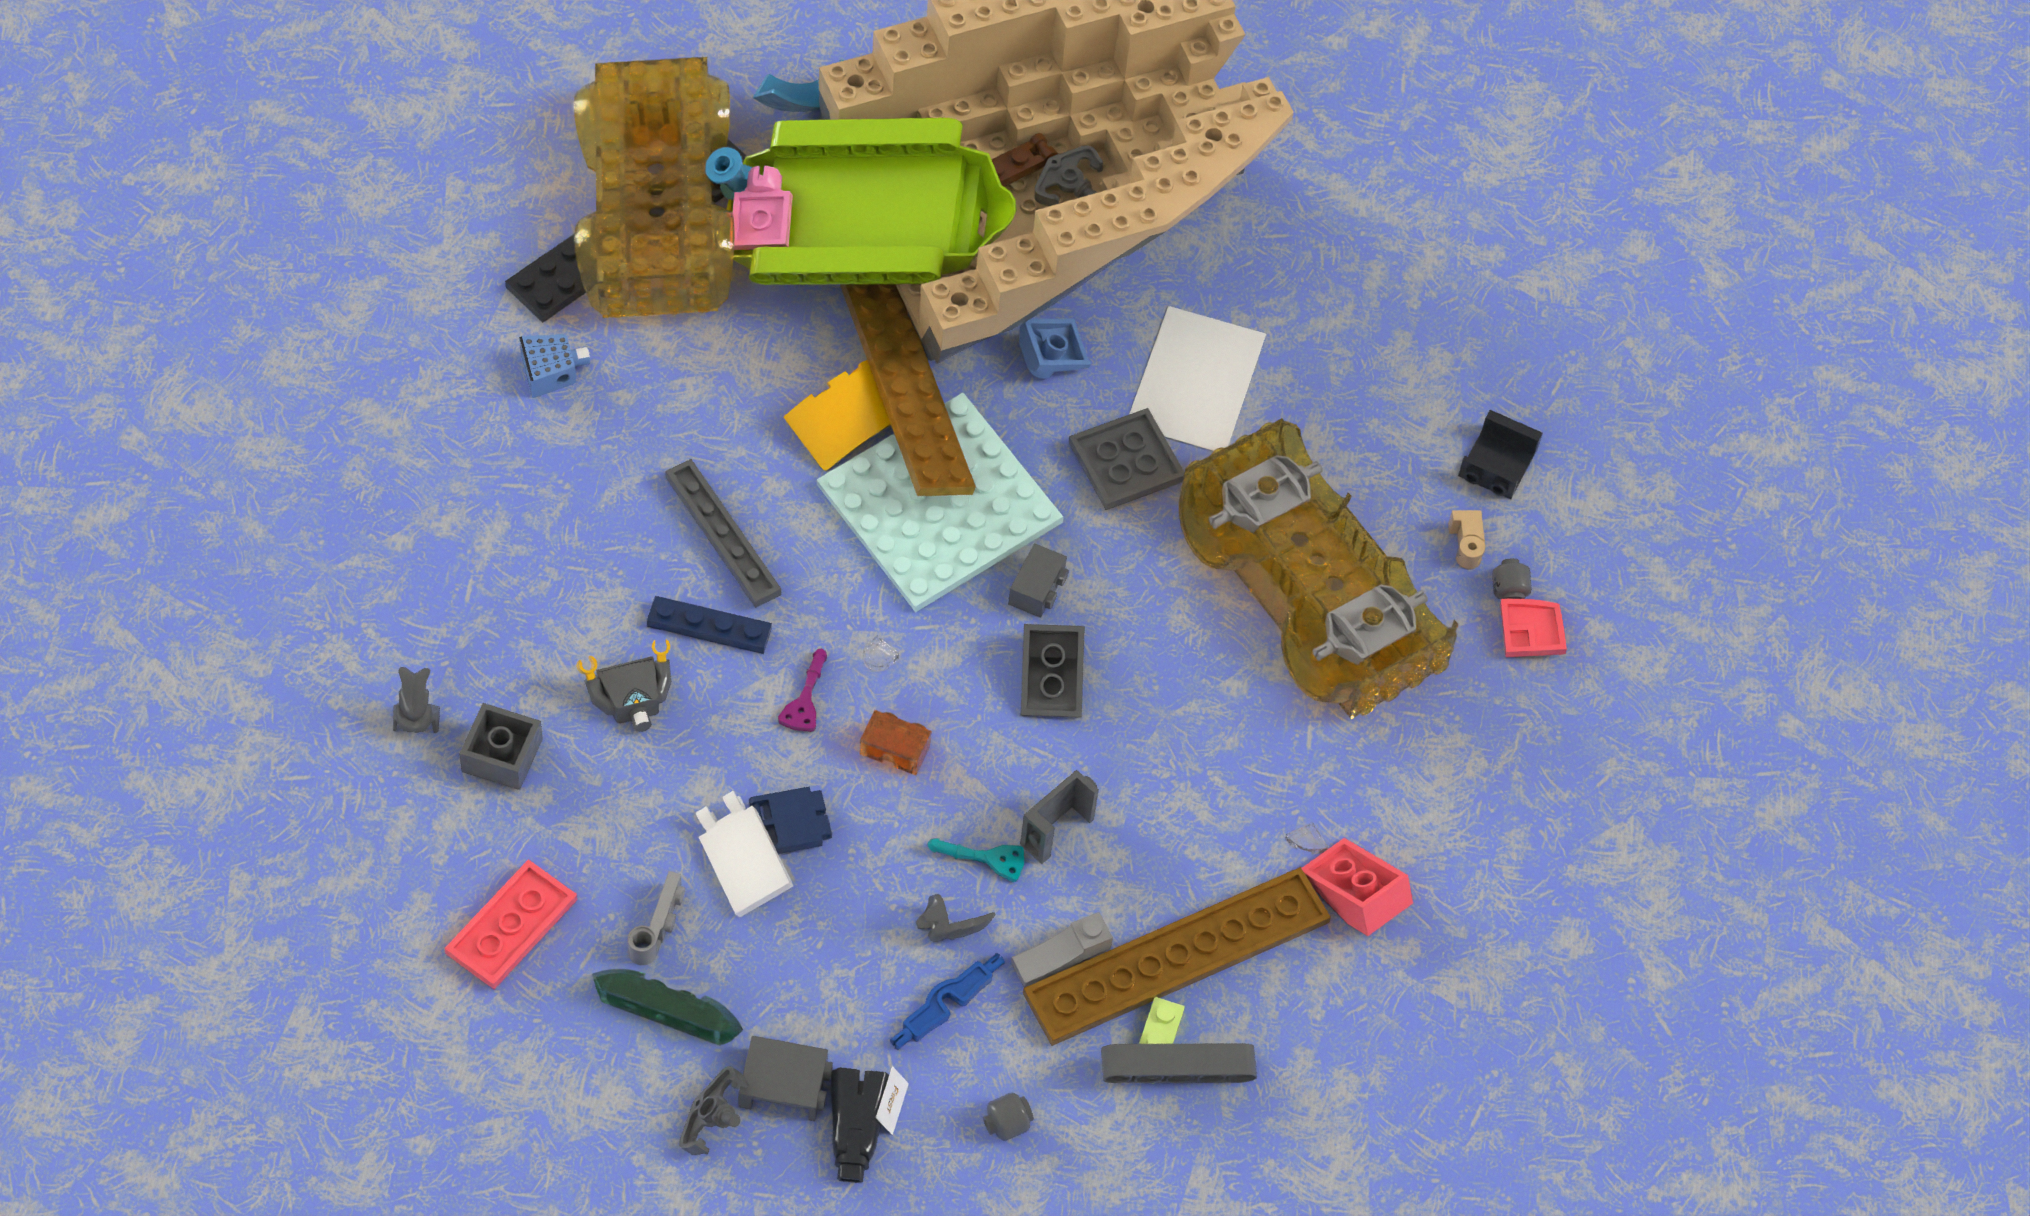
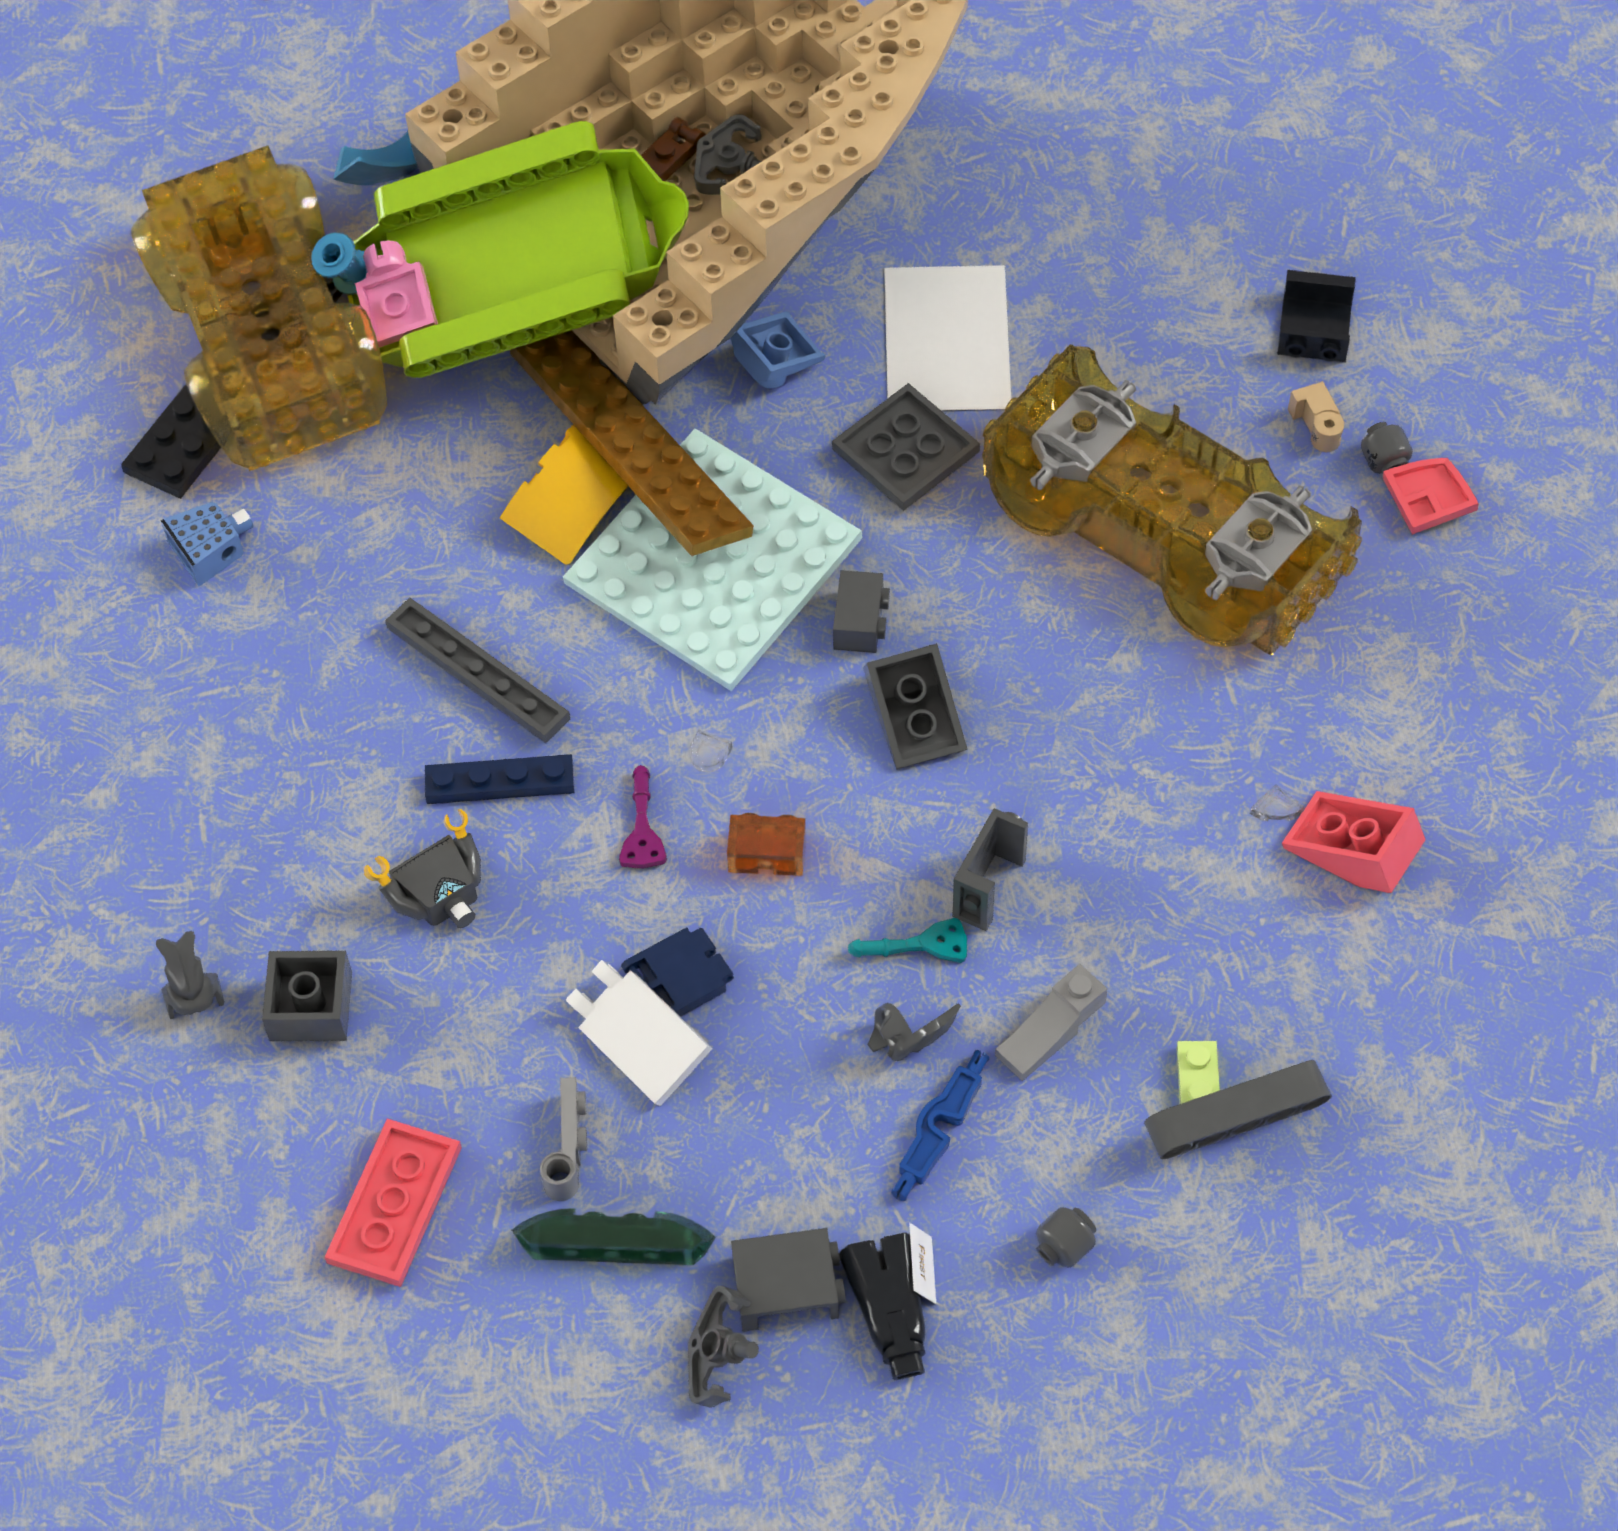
camera: 10 degrees left, 0 degrees up
(1175, 956) = (1181, 988): pearl gold plate -> none

